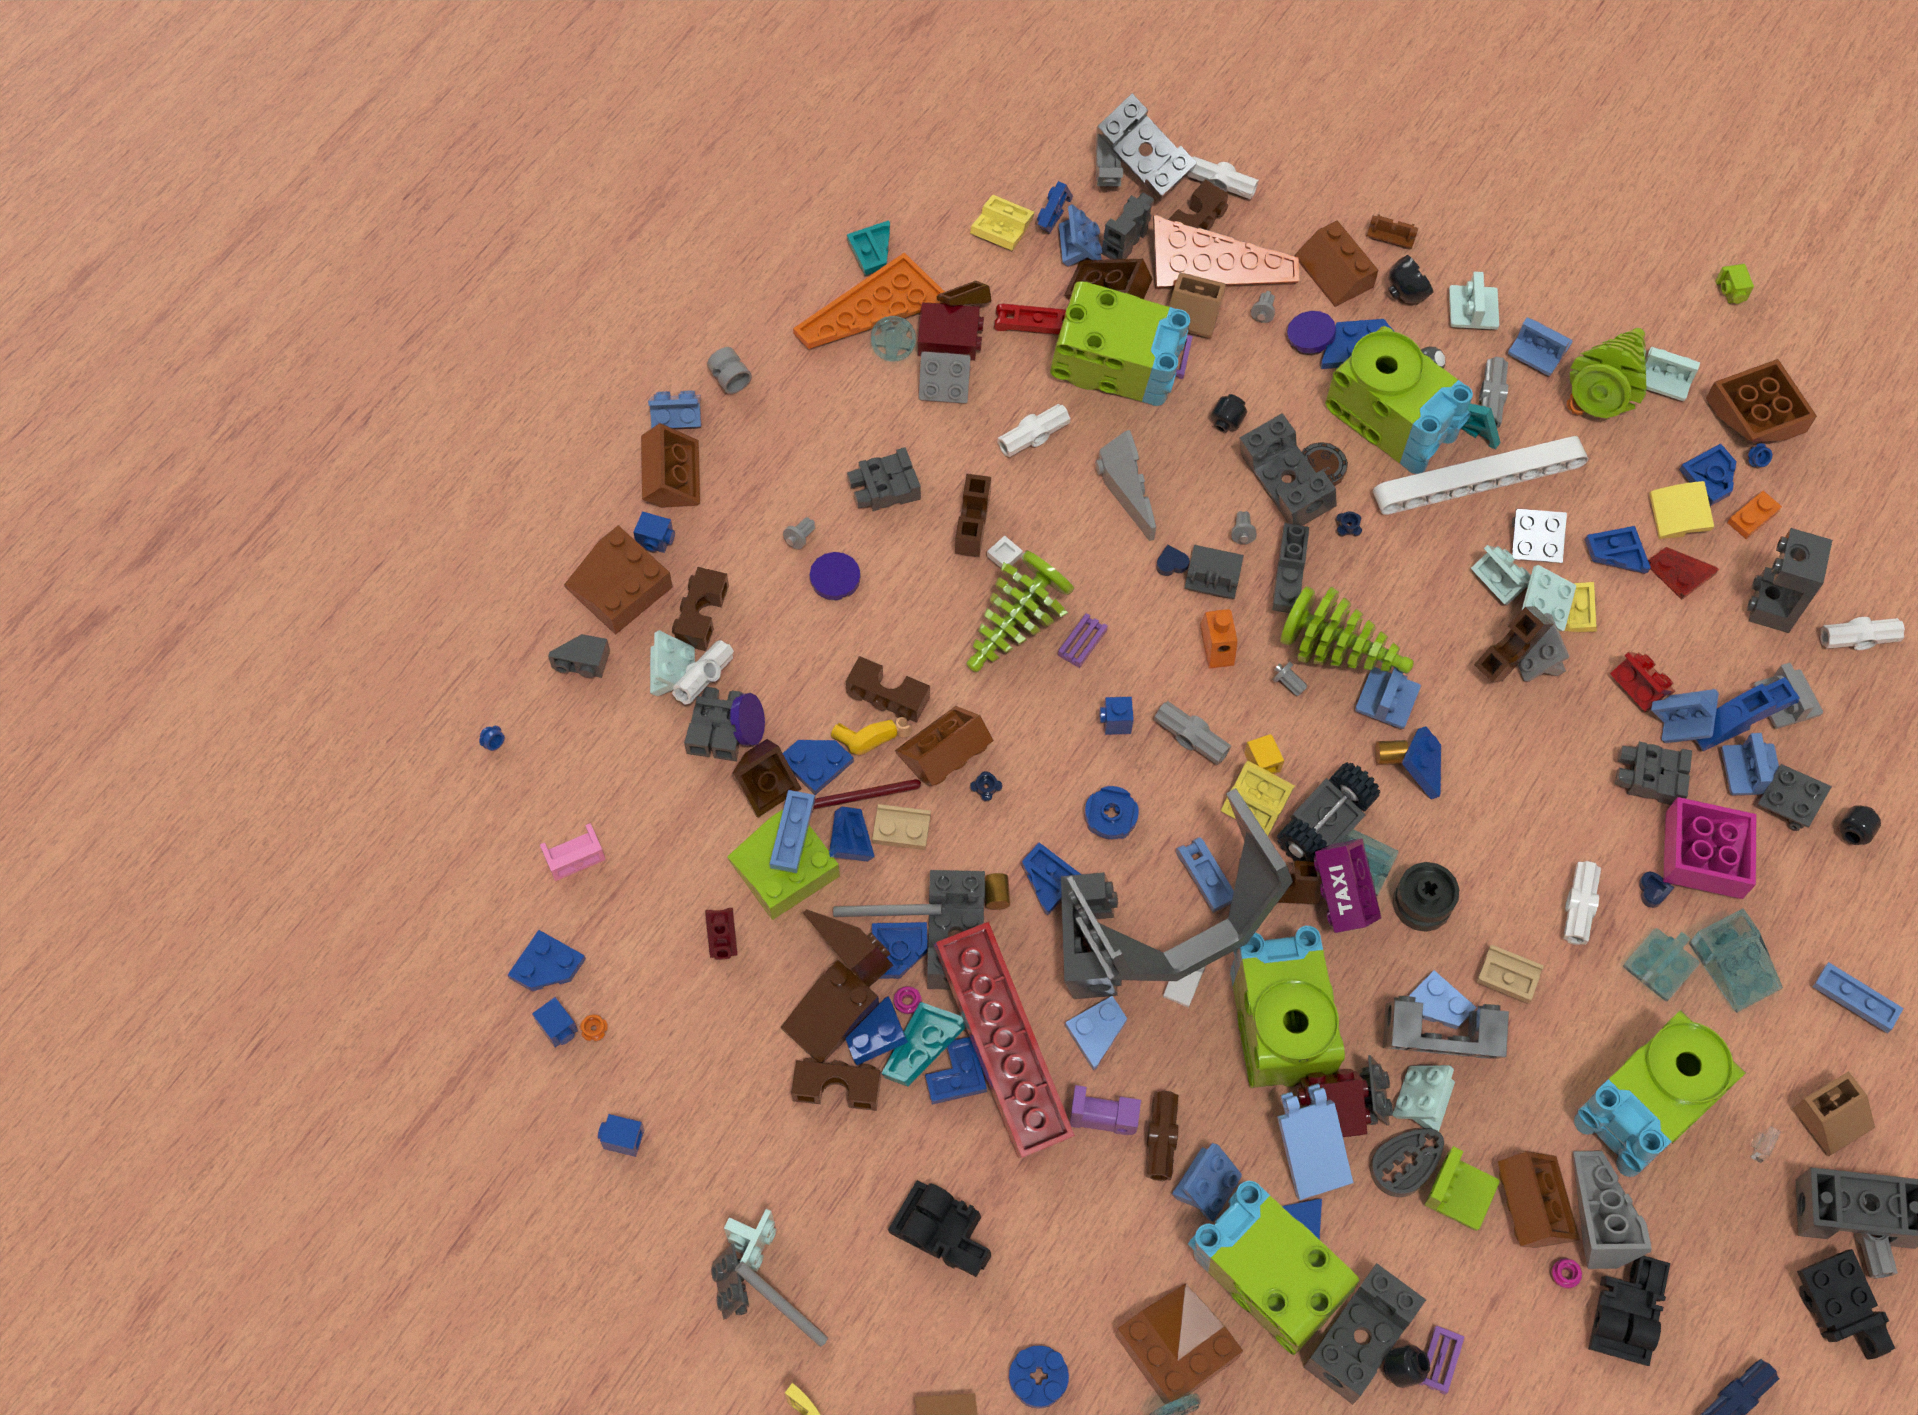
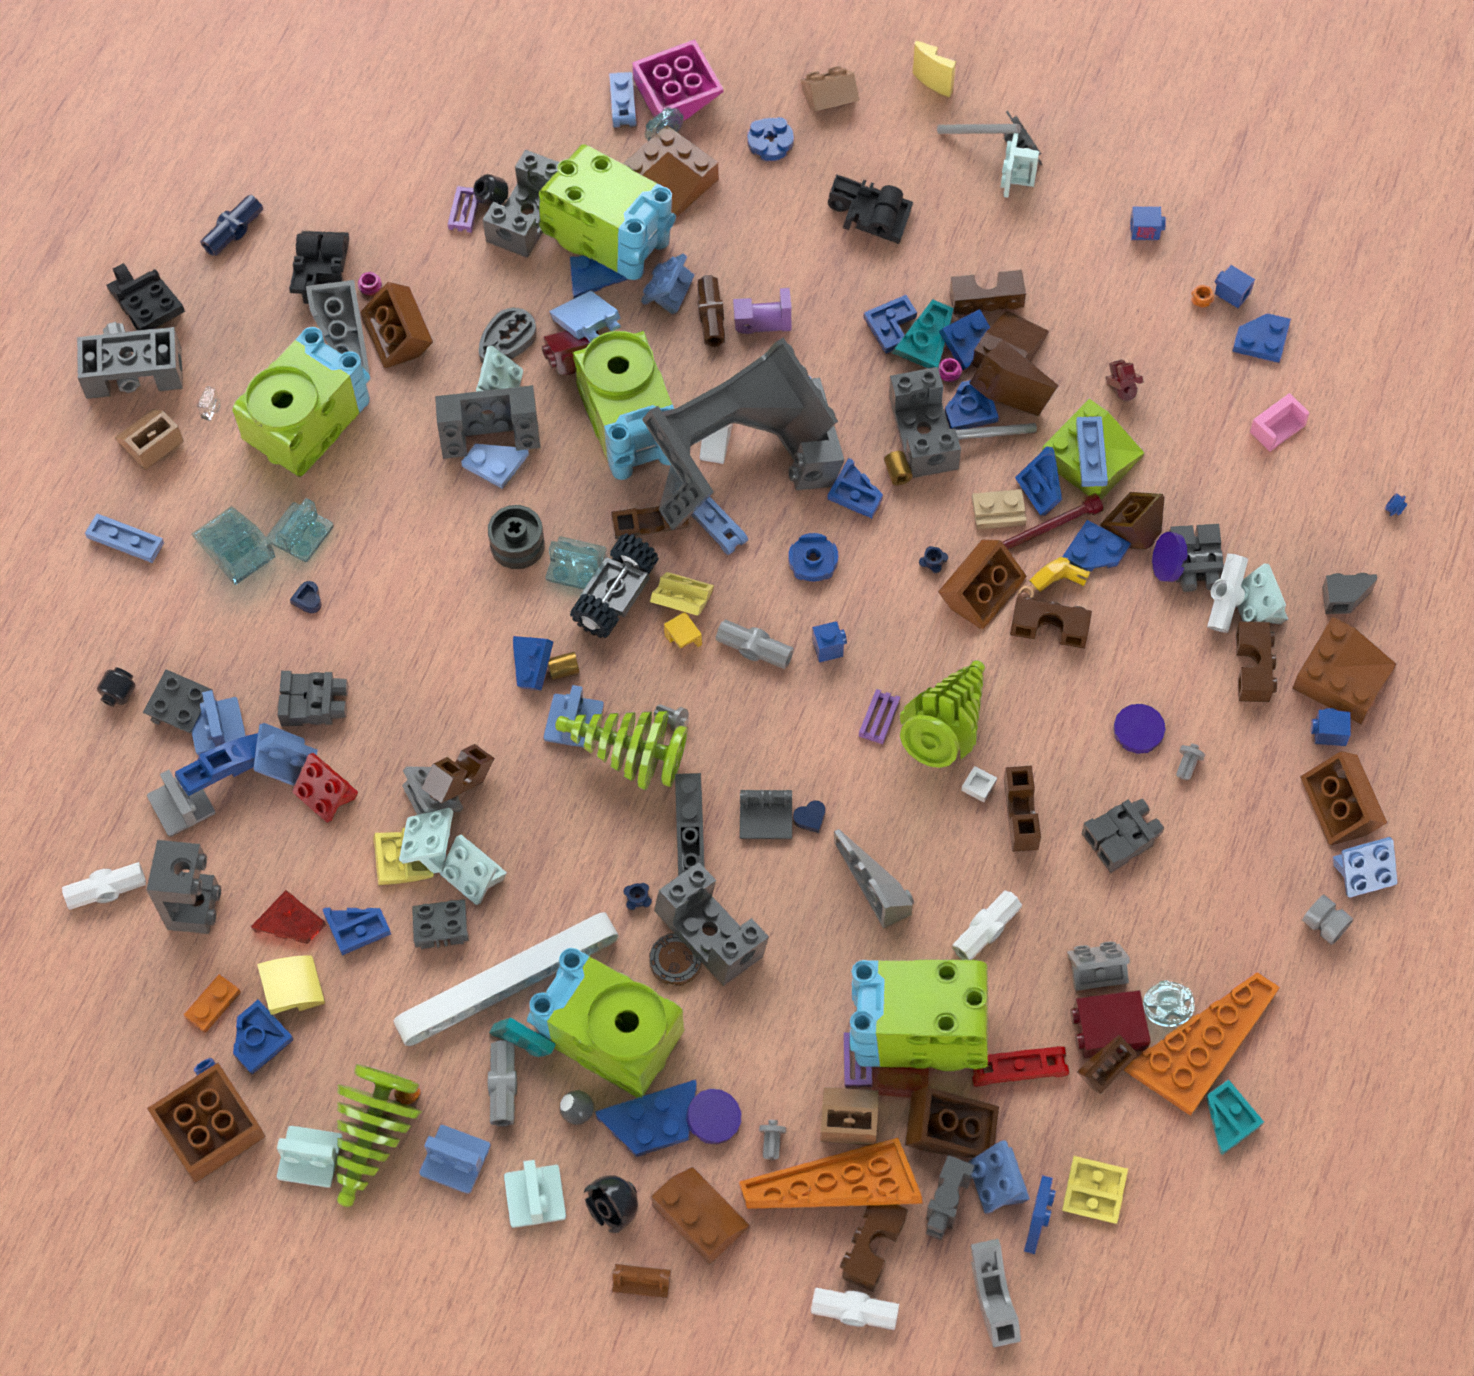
camera: 170 degrees right, 0 degrees up
(1003, 1040) = (861, 328): red brick -> none
(1129, 129) = (924, 1291): plate -> none
(1217, 631) = (748, 732): orange torso -> none
(1229, 413) = (785, 990): black head -> none
(1243, 531) = (745, 864): light grey piece -> none
(1347, 885) = (588, 511): magenta brick -> none
(1377, 1100) = (539, 371): dark grey hinge -> none
(1462, 1191) = (460, 321): lime bracket -> none
(1510, 974) = (434, 494): tan plate -> none
(1582, 903) = (373, 566): white piece -> none
(1710, 848) = (259, 629): dark pink slope -> none
(1735, 283) = (233, 1293): lime brick -> none

